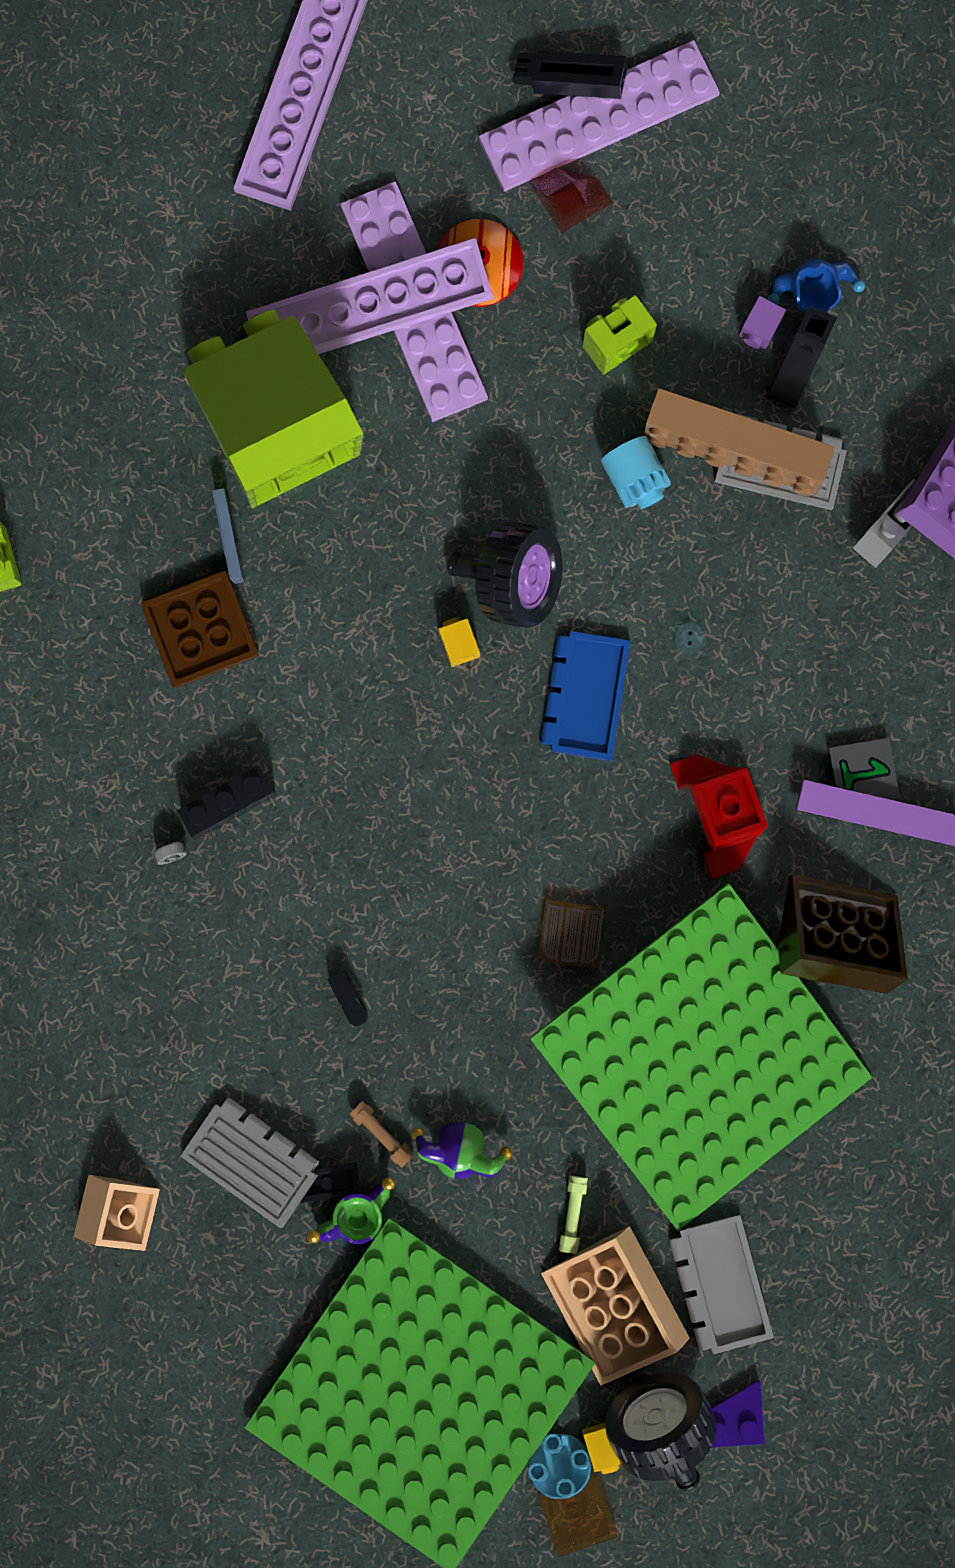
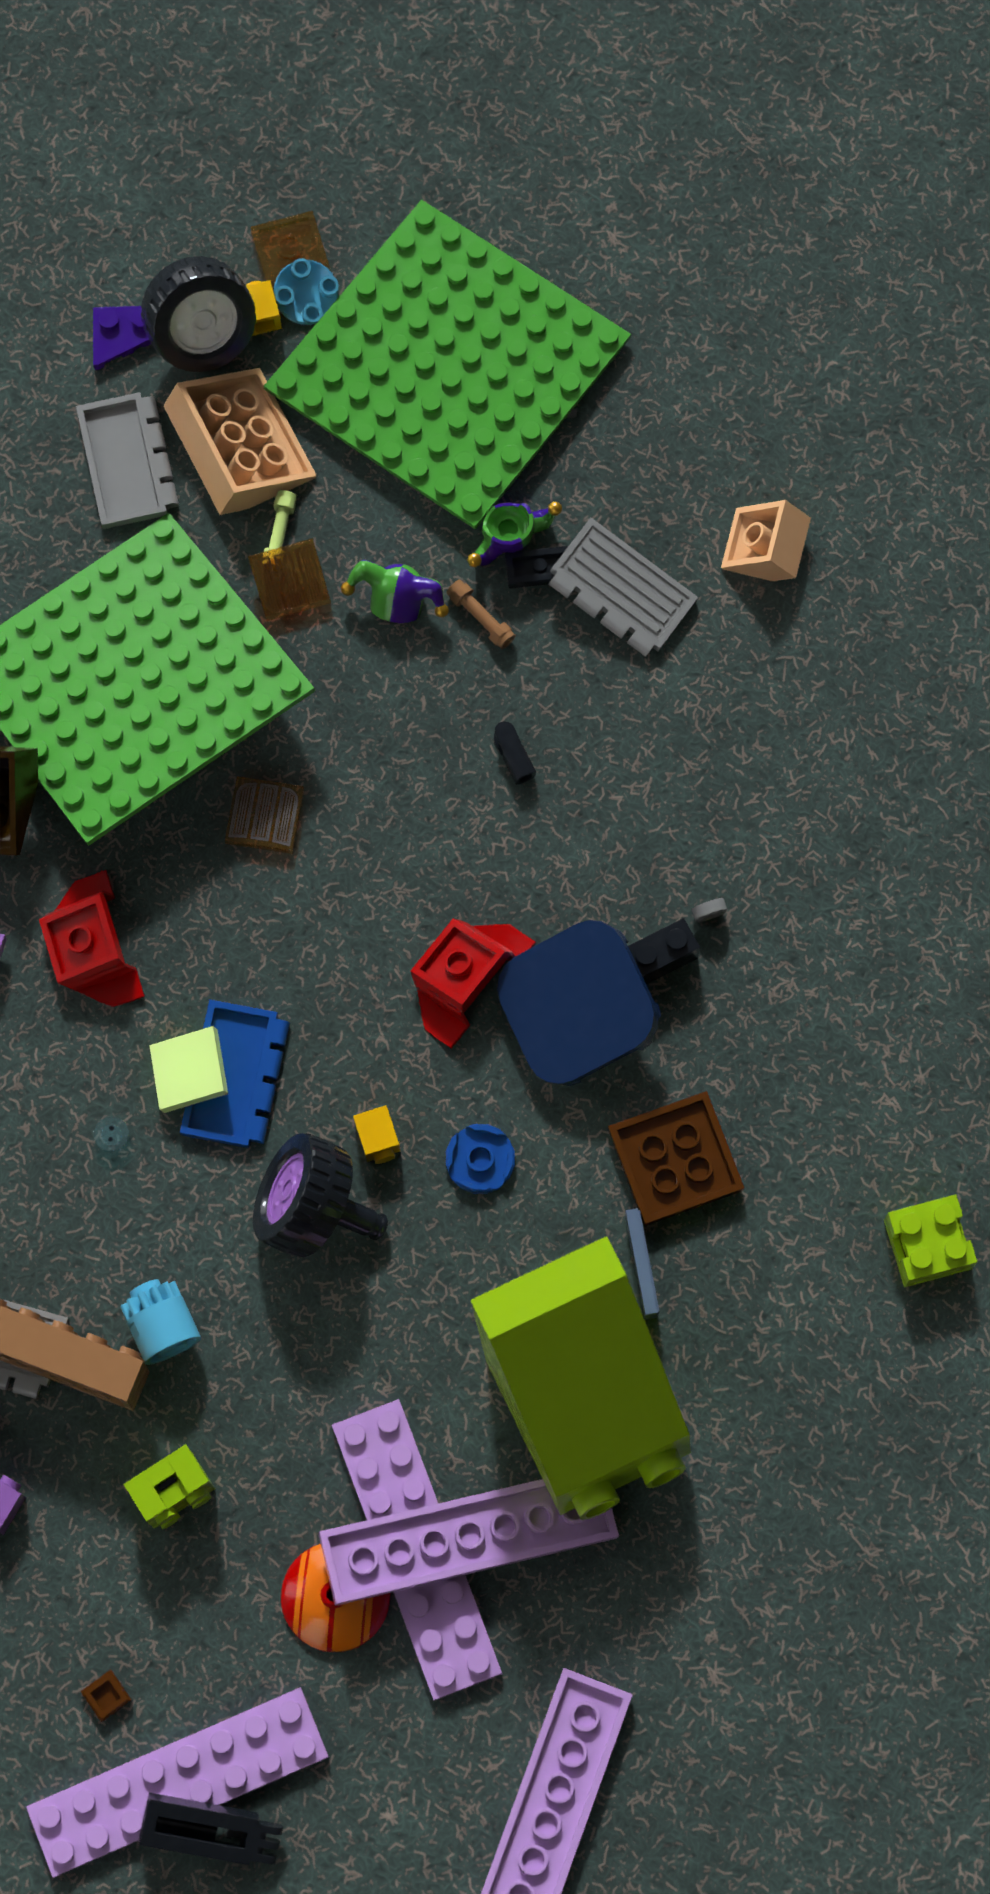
camera: 175 degrees left, 10 degrees down
(284, 757) = (577, 1002): none -> dark blue tile
(373, 637) = (479, 1171): none -> blue tile
(388, 792) = (458, 970): none -> red piece
(560, 1162) = (289, 579): none -> clear orange tile
(570, 196) = (219, 1676): clear red slope -> none
(625, 694) = (188, 1069): none -> yellowish green tile
(661, 179) = (106, 1695): none -> reddish brown tile

